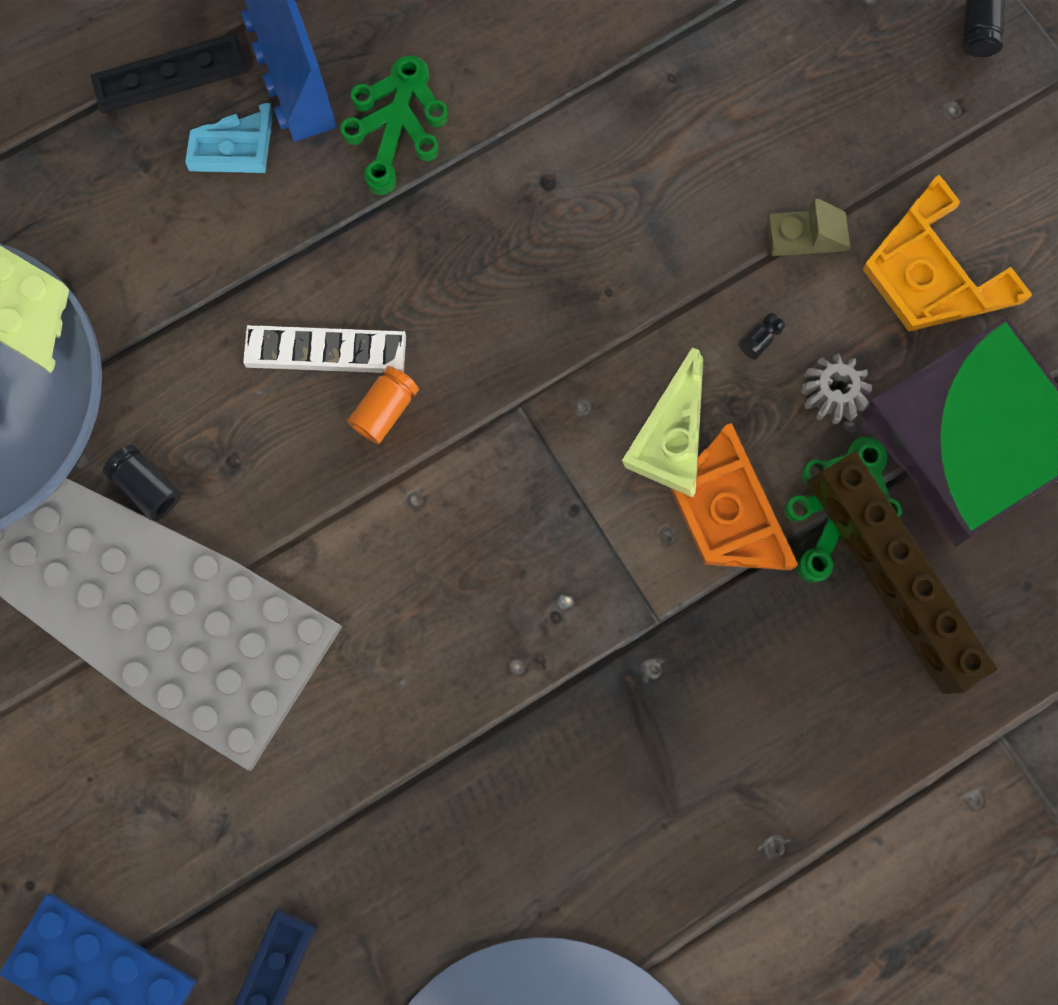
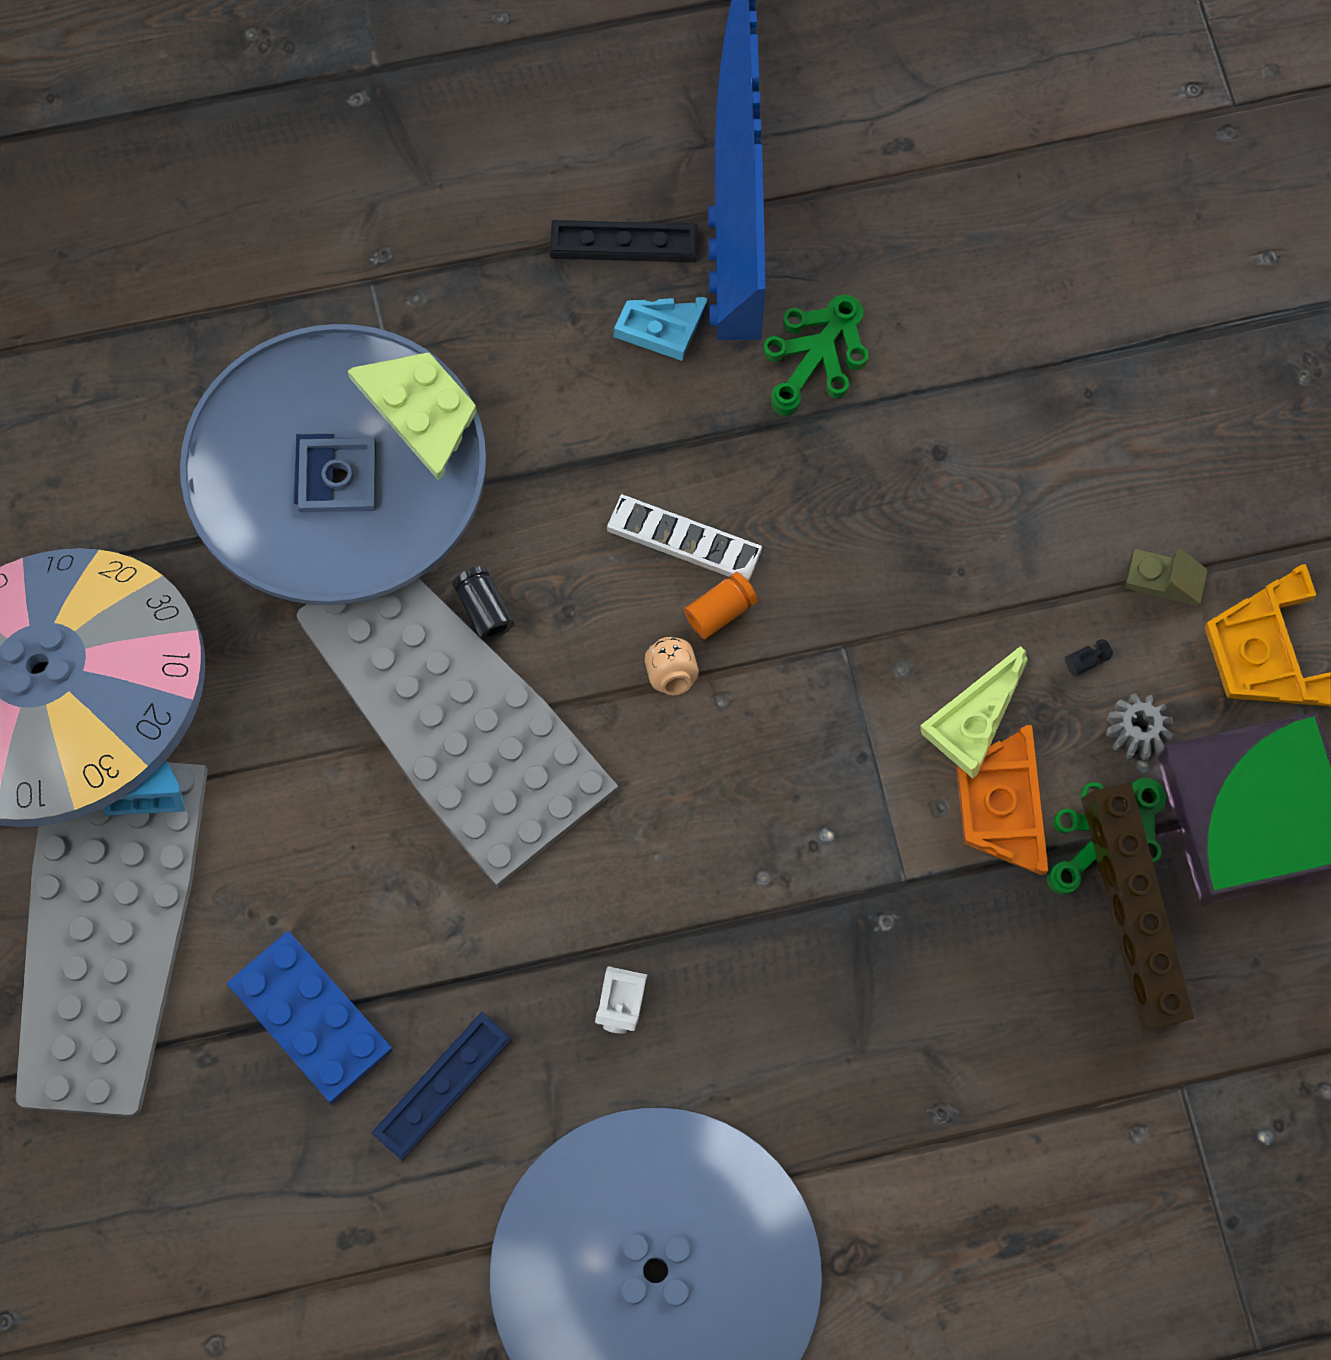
camera: 15 degrees right, 5 degrees down
(353, 483) = (671, 666): none -> light nougat head
(414, 849) = (620, 1000): none -> white bracket

